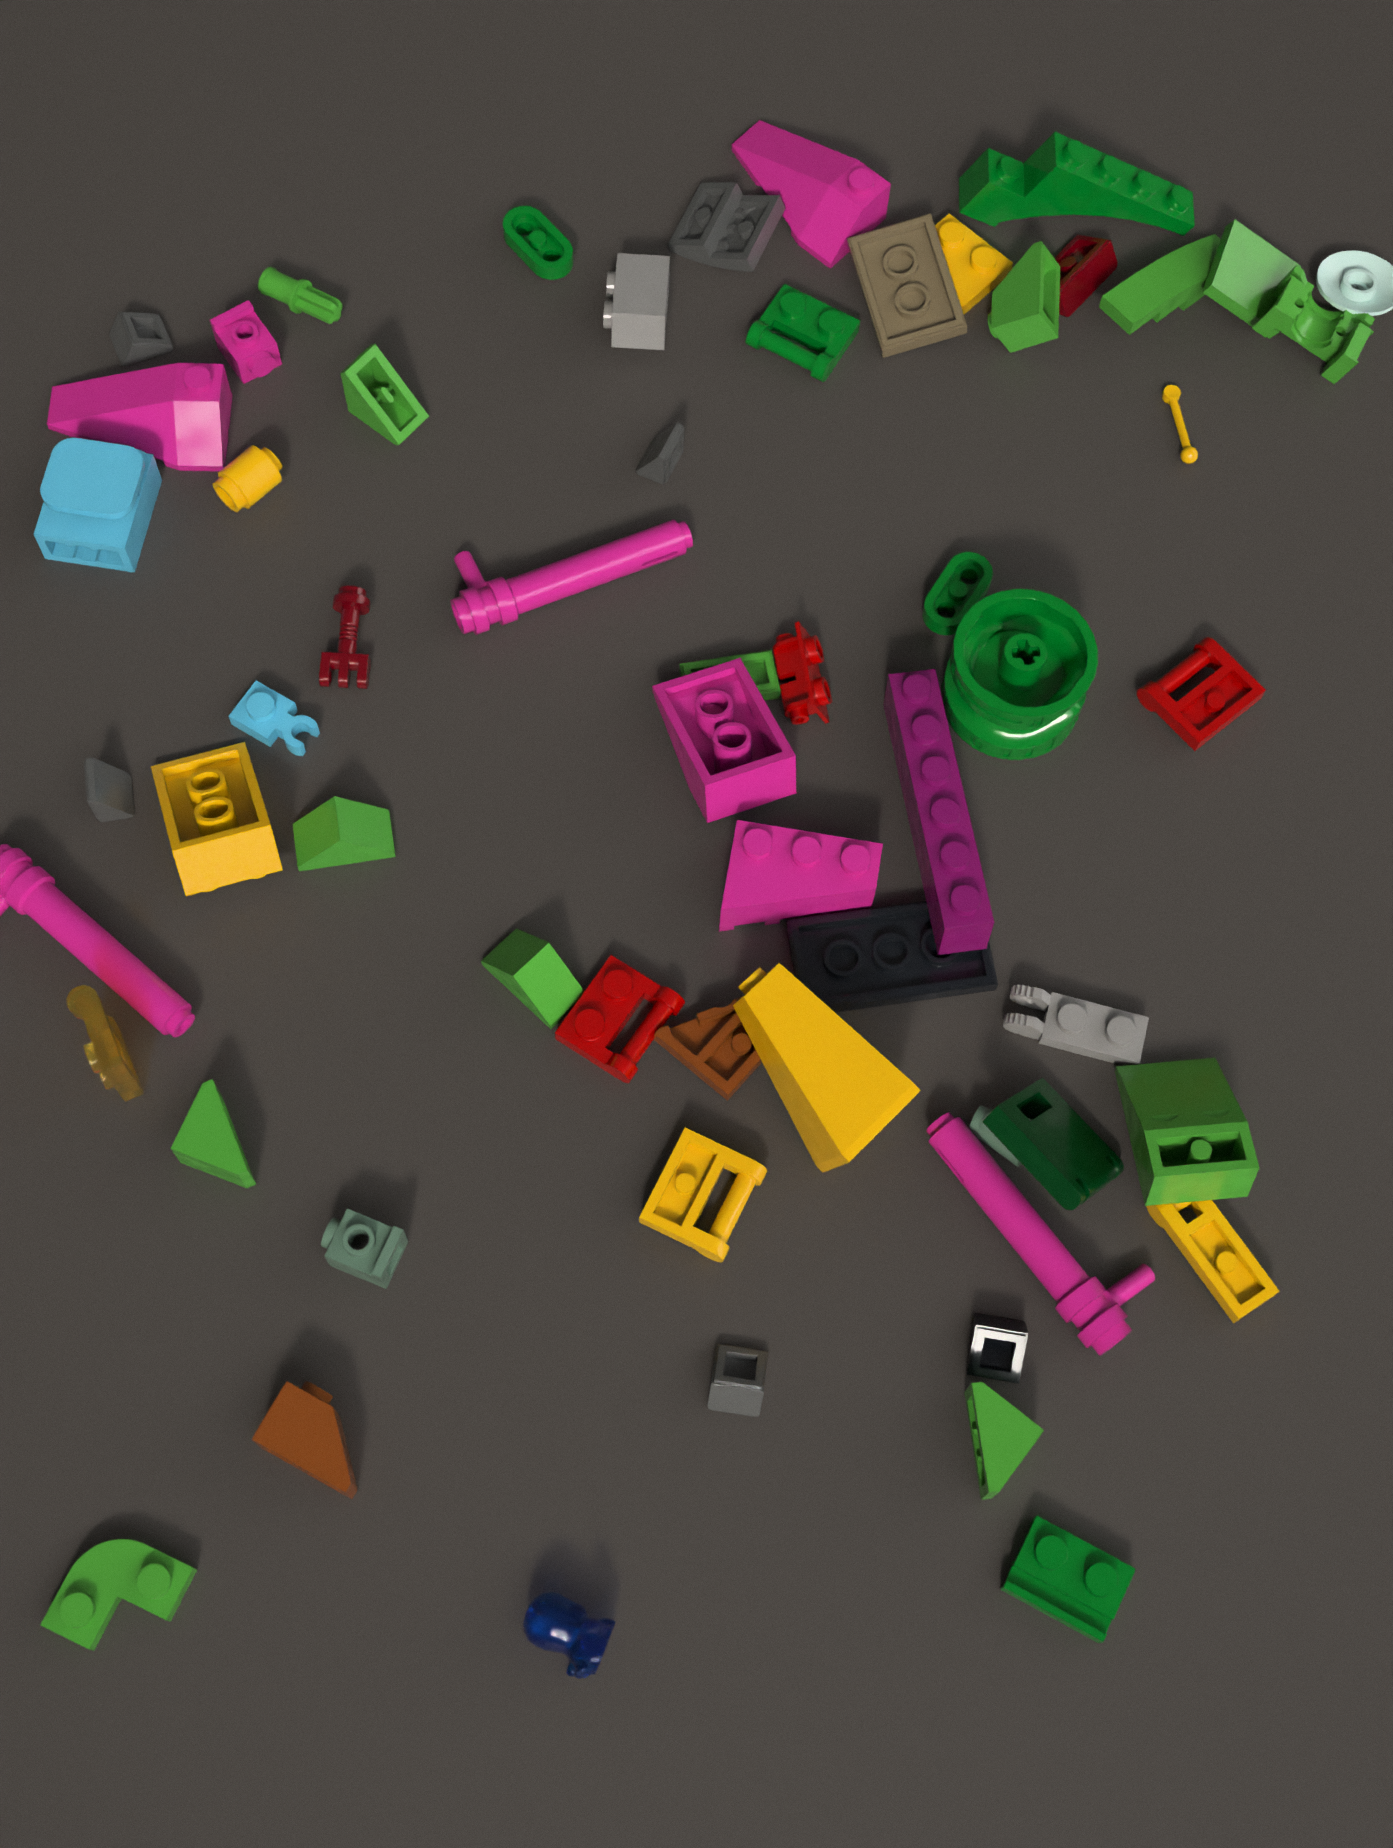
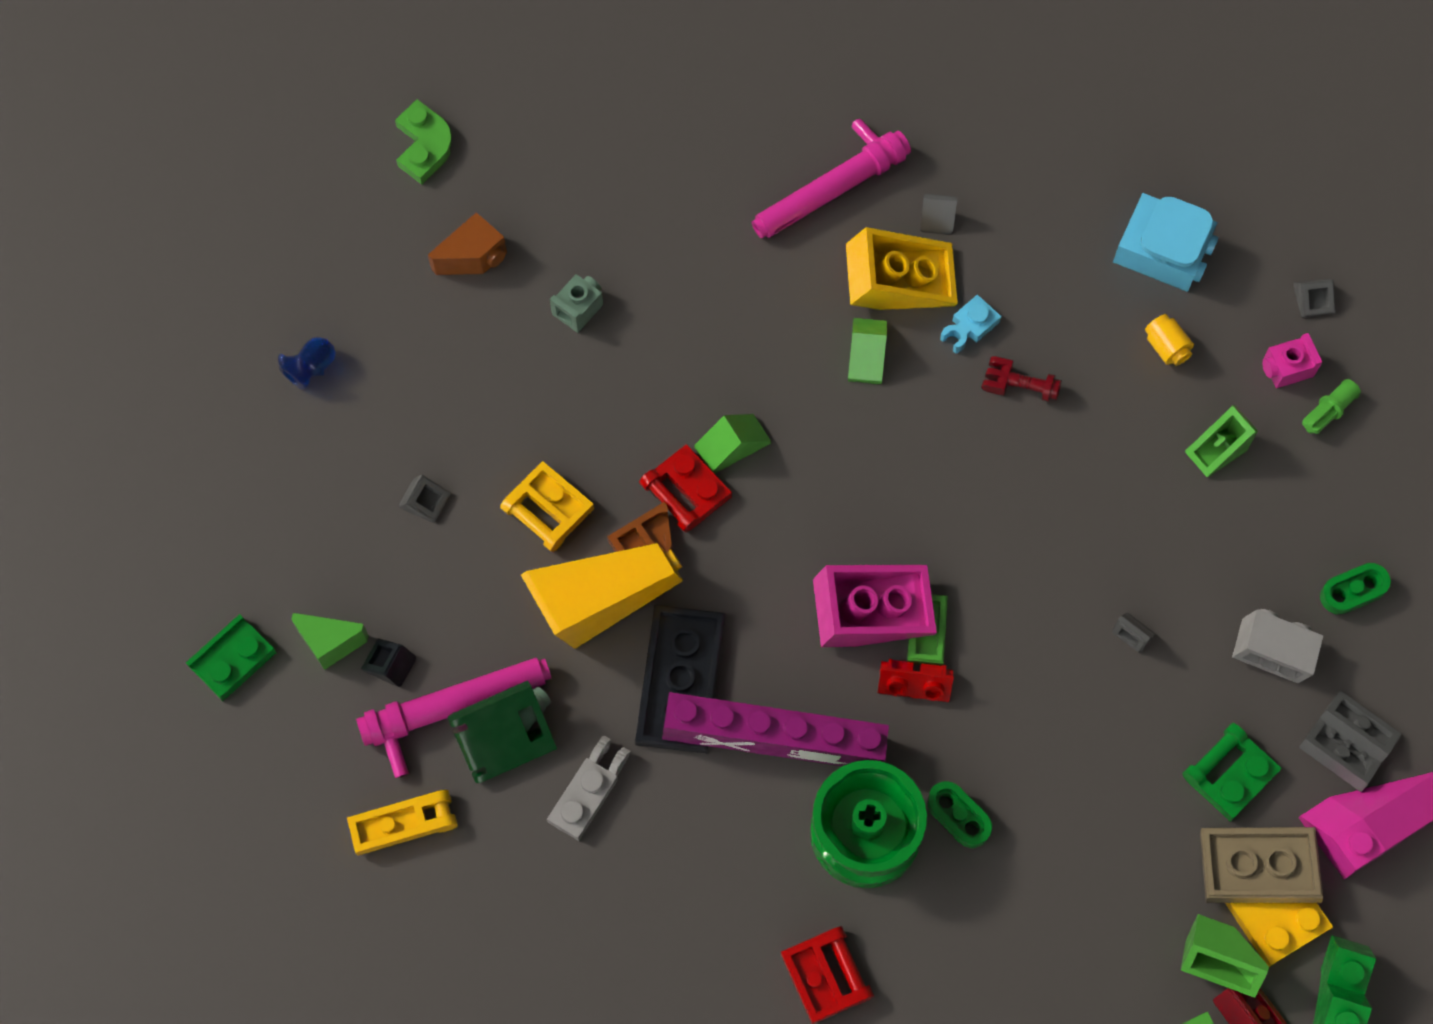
camera: 110 degrees right, 0 degrees up
(108, 1050) = (739, 177): clear yellow plate -> none
(164, 410) = (1239, 292): dark pink wedge -> none
(210, 1140) = (674, 232): bright green slope -> none
(504, 599) = (1029, 489): dark pink cylinder -> none
(795, 874) = (754, 622): dark pink wedge -> none
(1186, 1132) = (487, 823): bright green slope -> none

